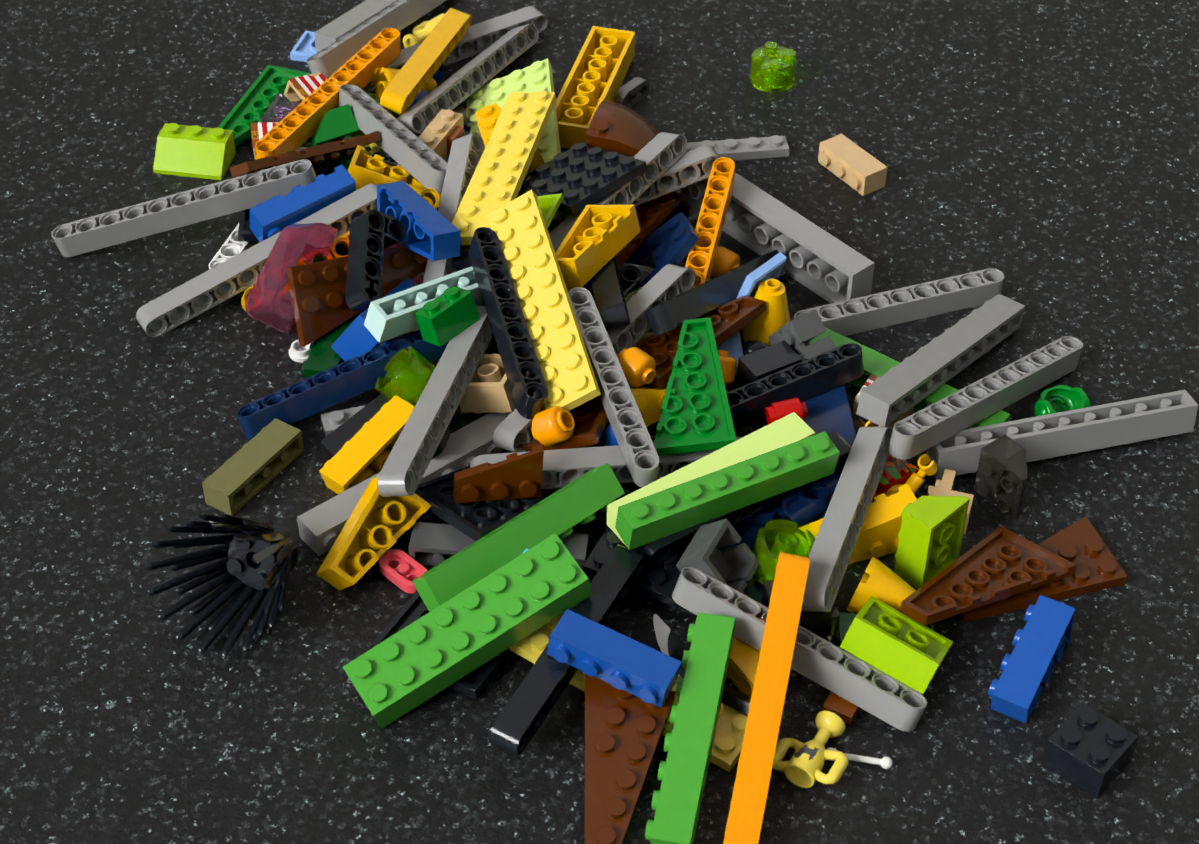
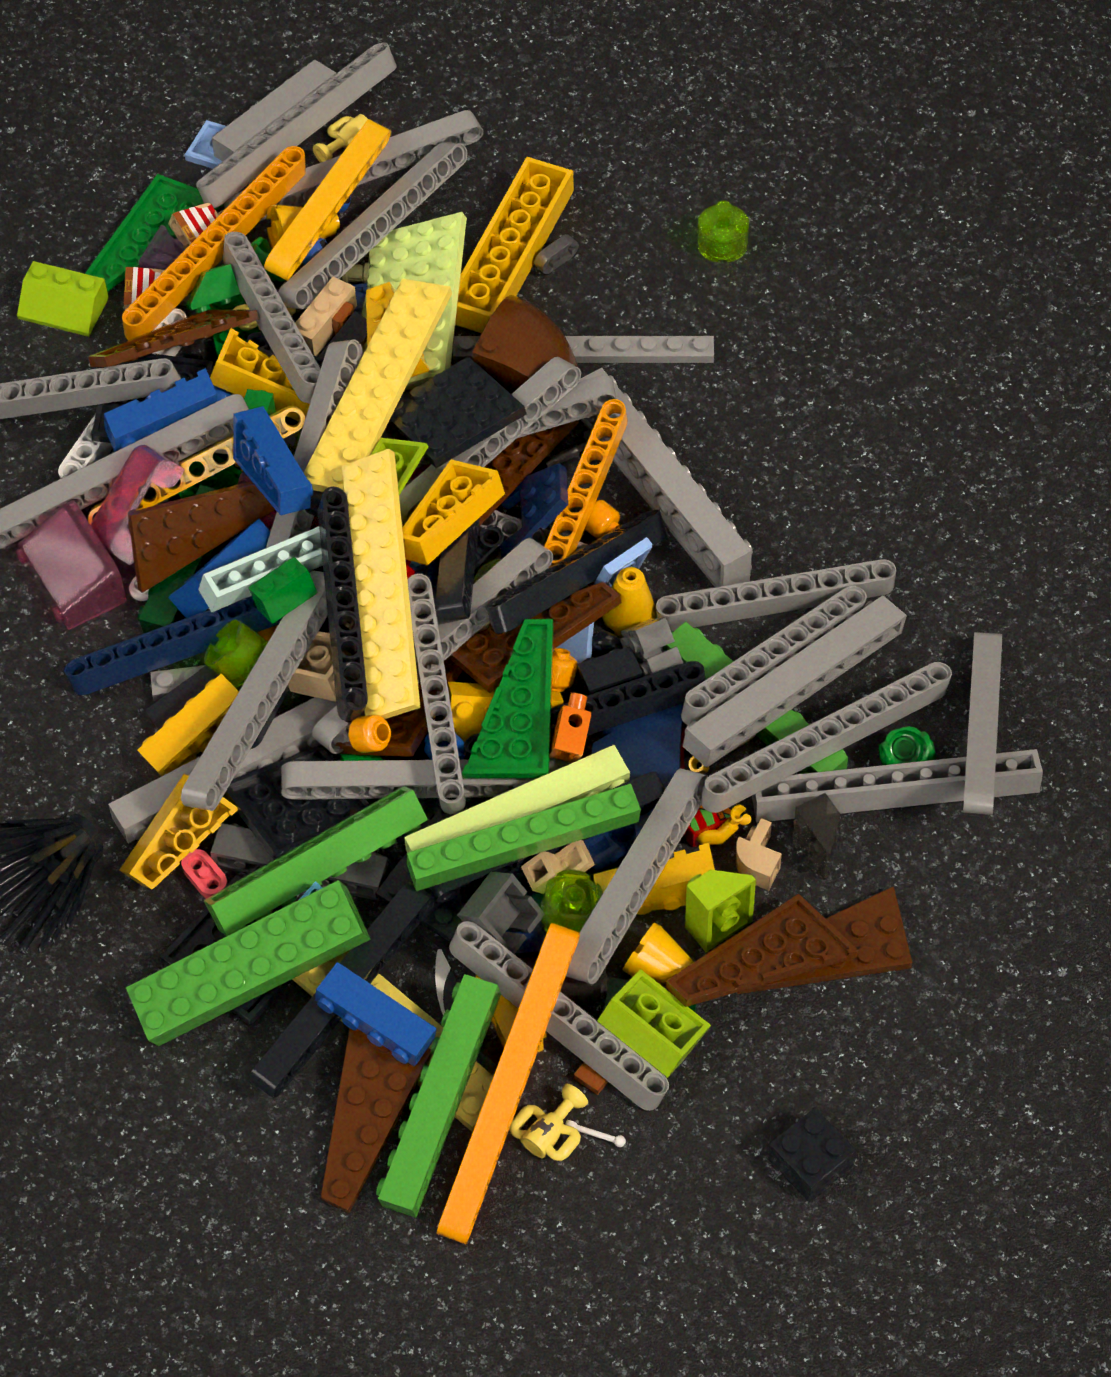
camera: 10 degrees right, 15 degrees up
(235, 335) = (73, 566): none -> clear pink windscreen
(253, 467) = (75, 732): olive brick -> none
(367, 240) = (203, 539): black beam -> none
(510, 479) = (316, 793): reddish brown wing -> none
(637, 366) = (465, 670): light orange head -> none
(748, 523) = (547, 865): none -> tan brick
(750, 403) = (570, 741): none -> orange torso
(783, 408) = (611, 735): red brick -> none
(852, 164) = (776, 388): tan brick -> none
(911, 339) = (771, 653): none -> light grey beam
(1033, 658) = (784, 1050): blue wedge -> none
(1130, 375) = (983, 724): none -> light grey beam

